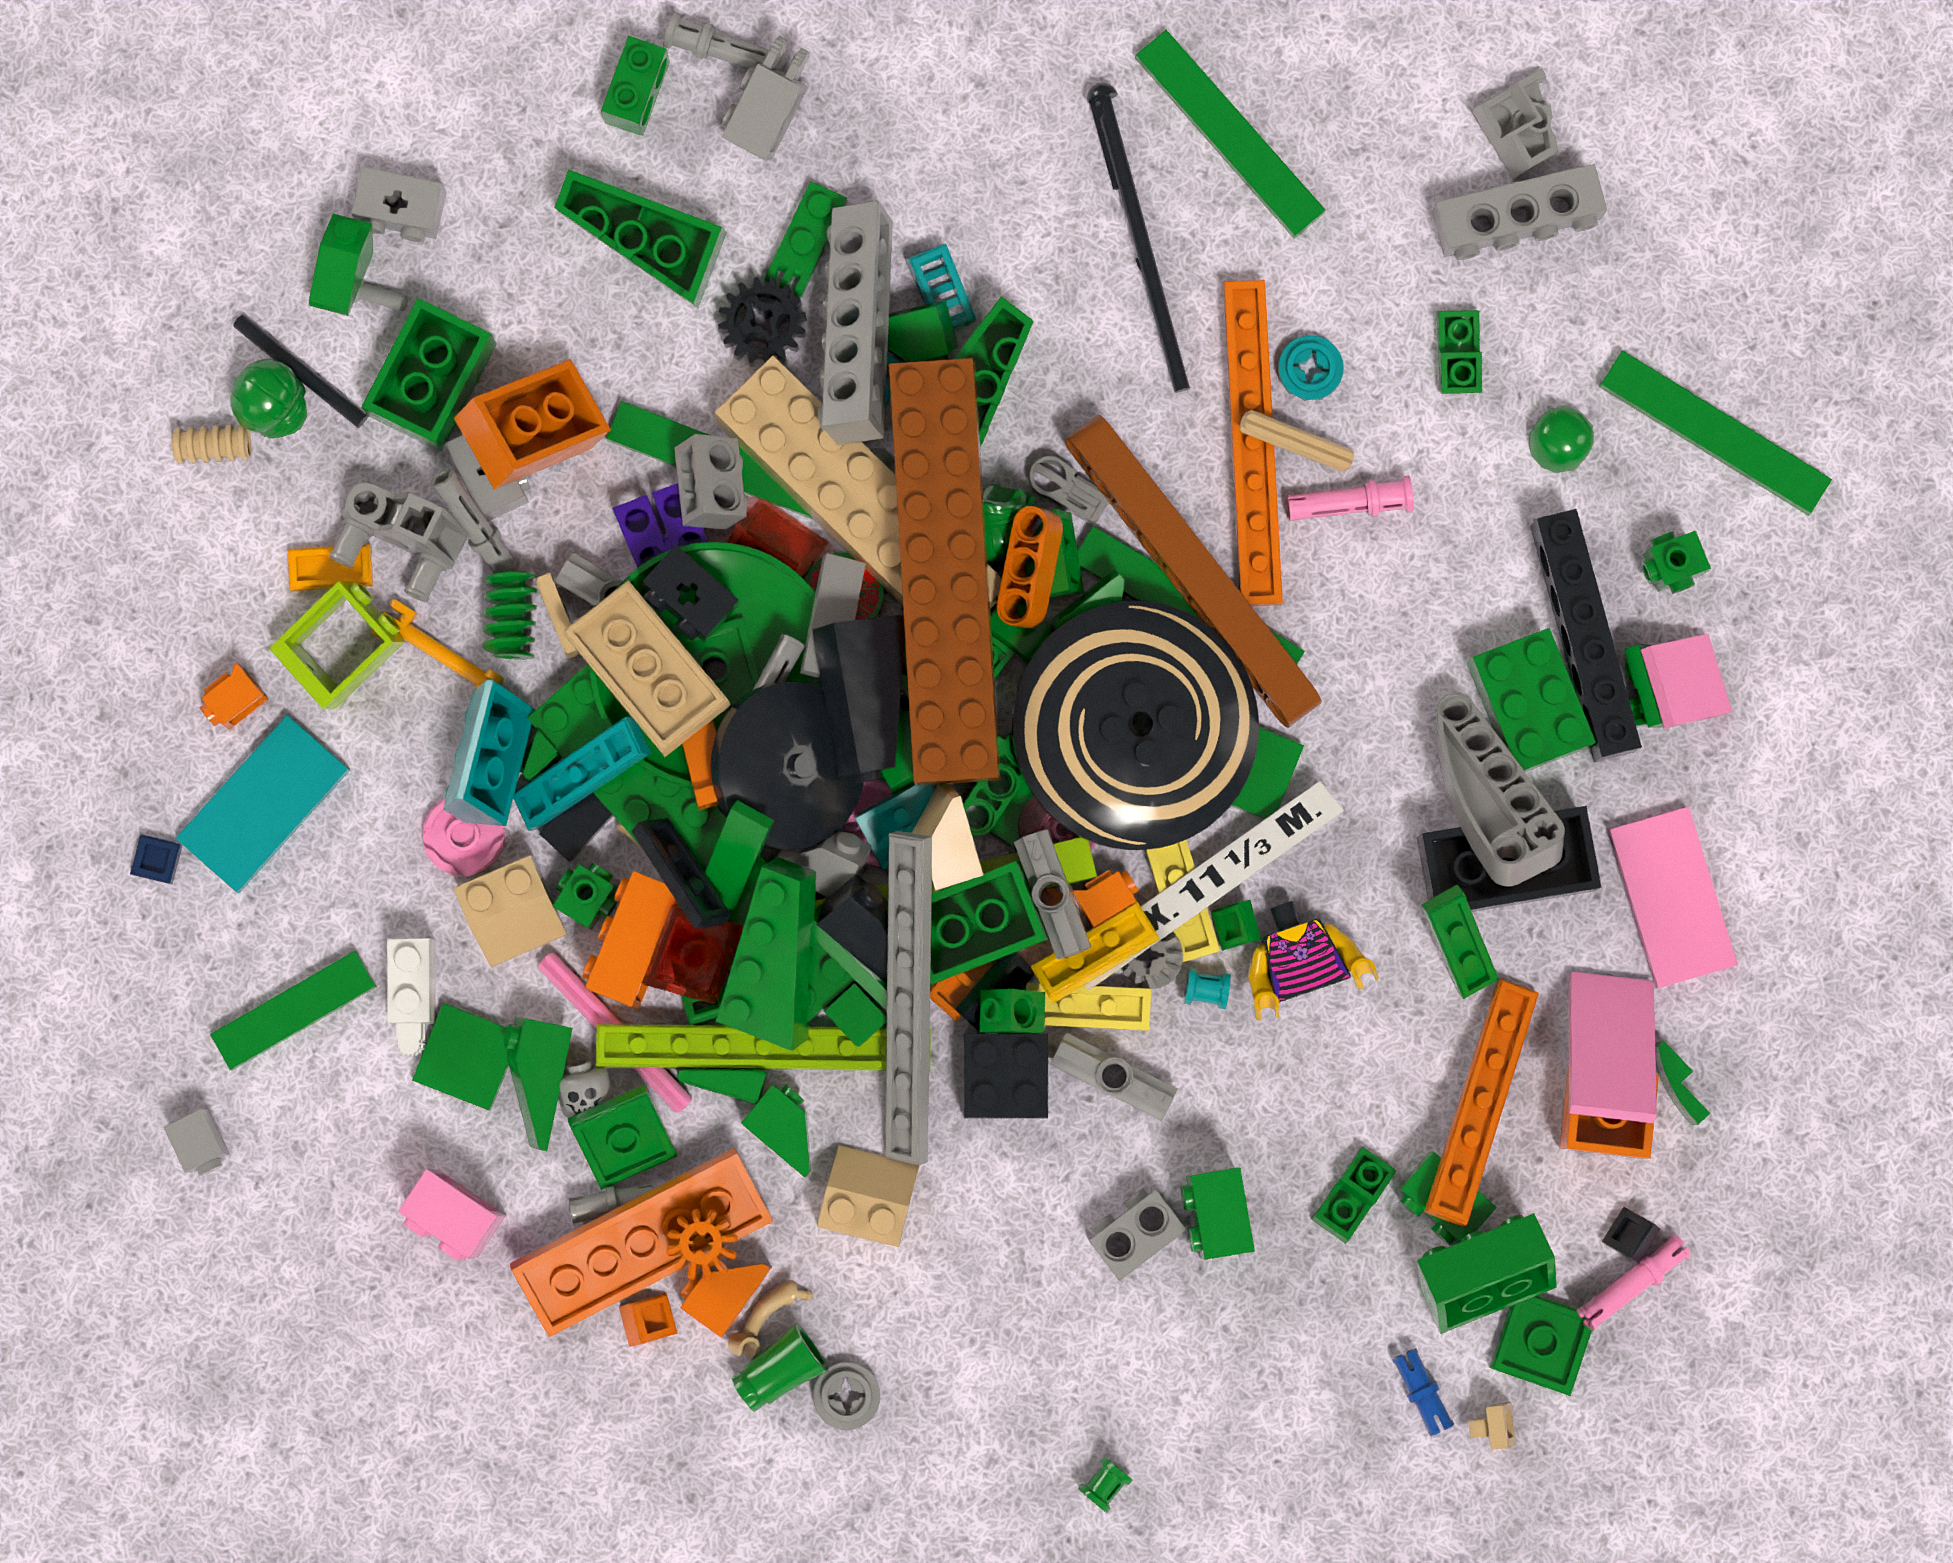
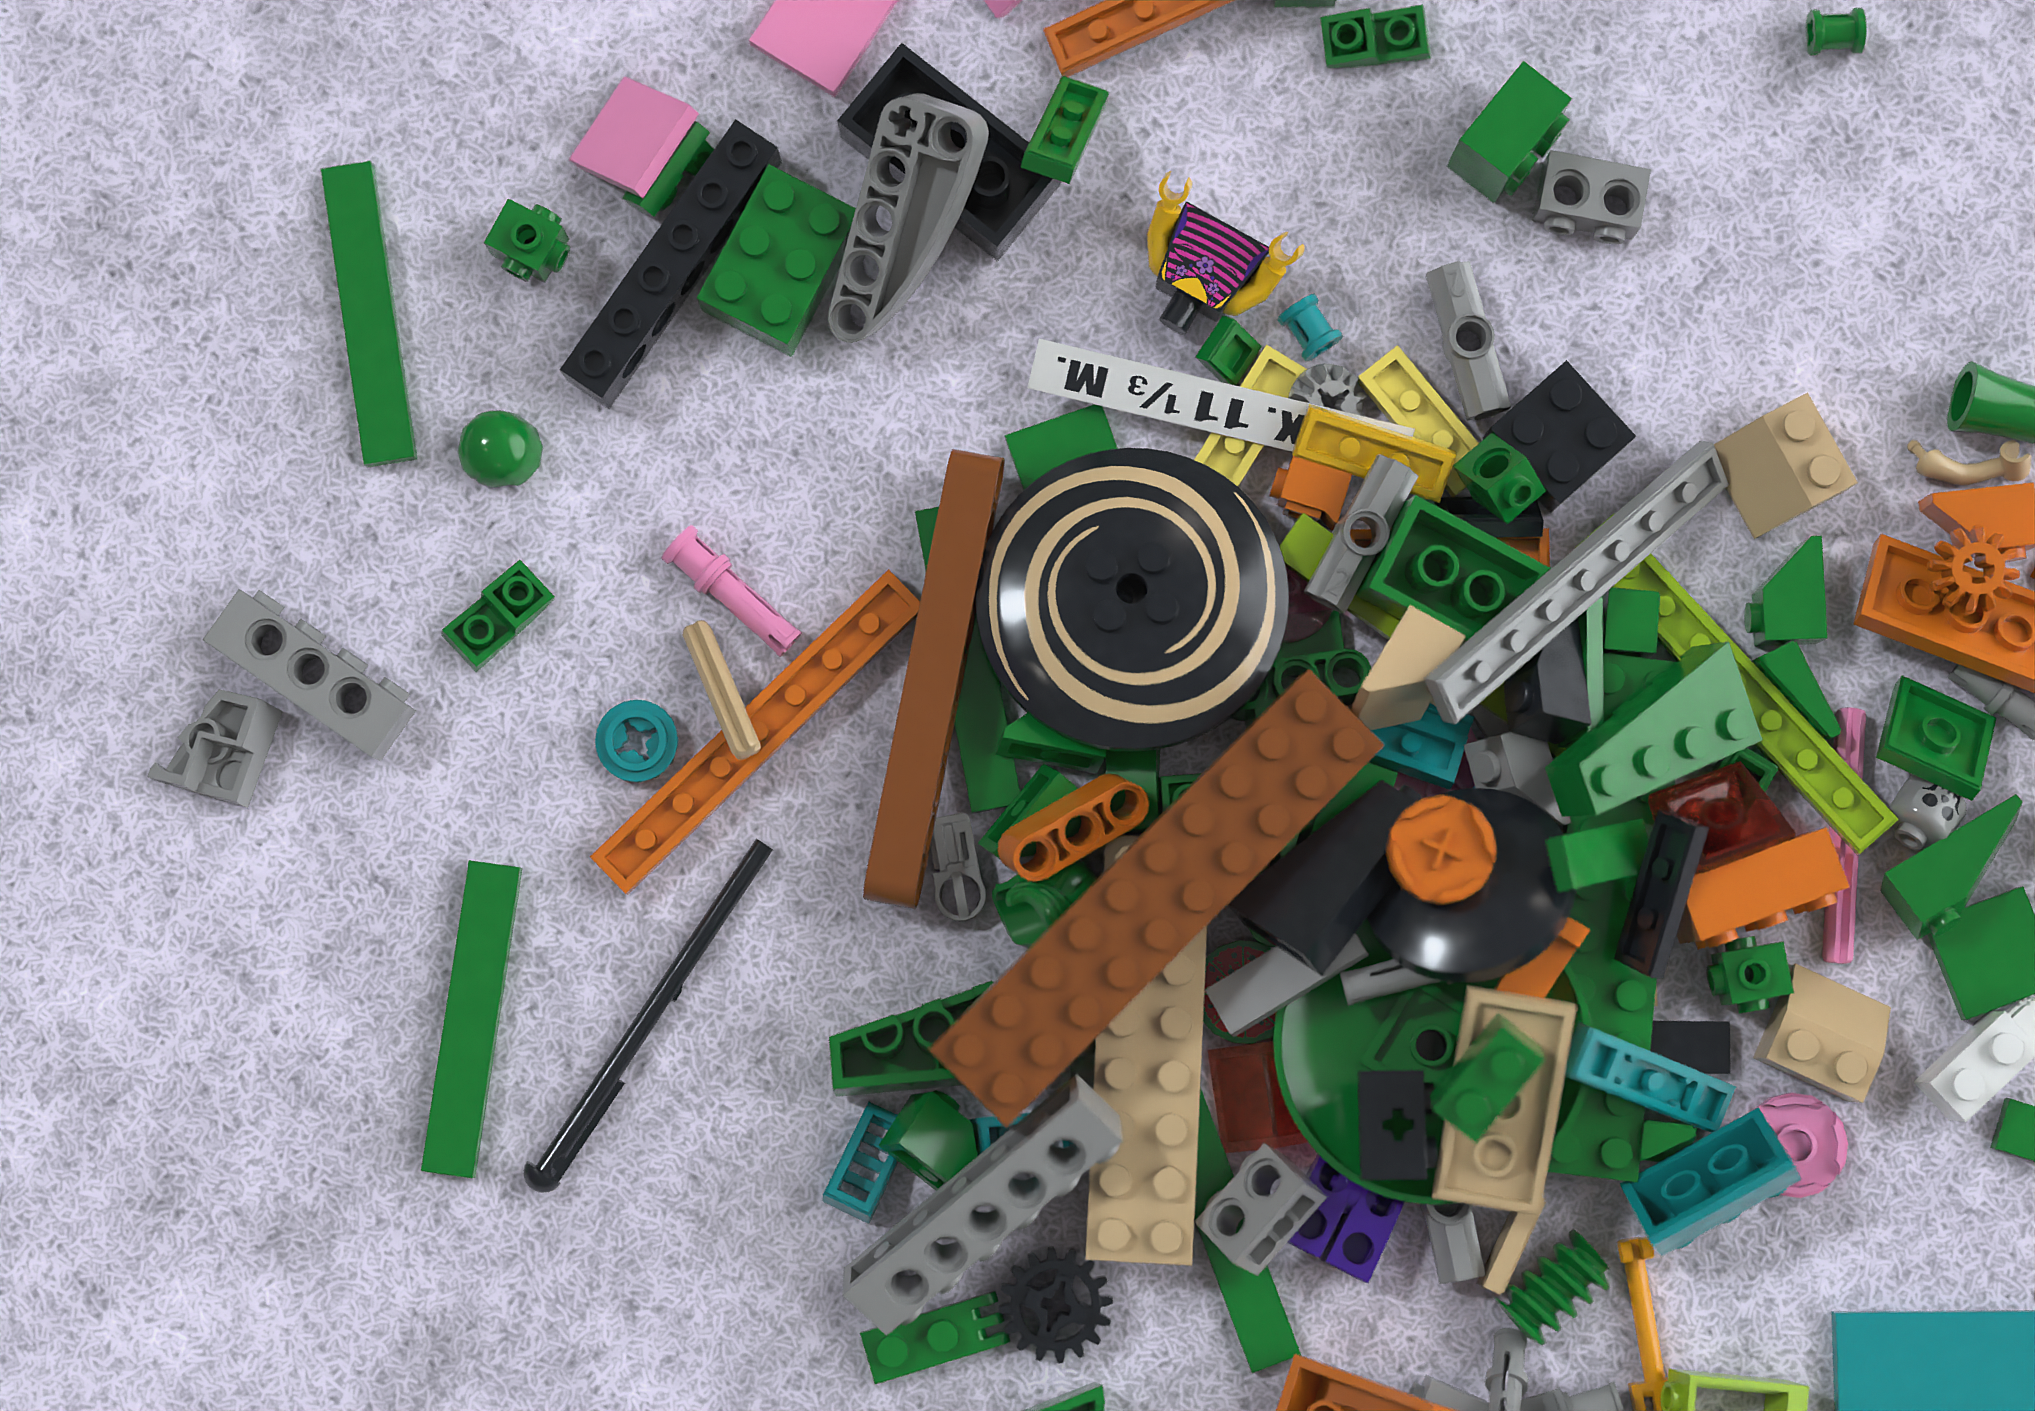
camera: 130 degrees left, 0 degrees up
(668, 662) = (1487, 1078): none -> green brick
(823, 757) = (1441, 850): none -> orange tile
(833, 1410) = (1969, 305): light grey gear -> none

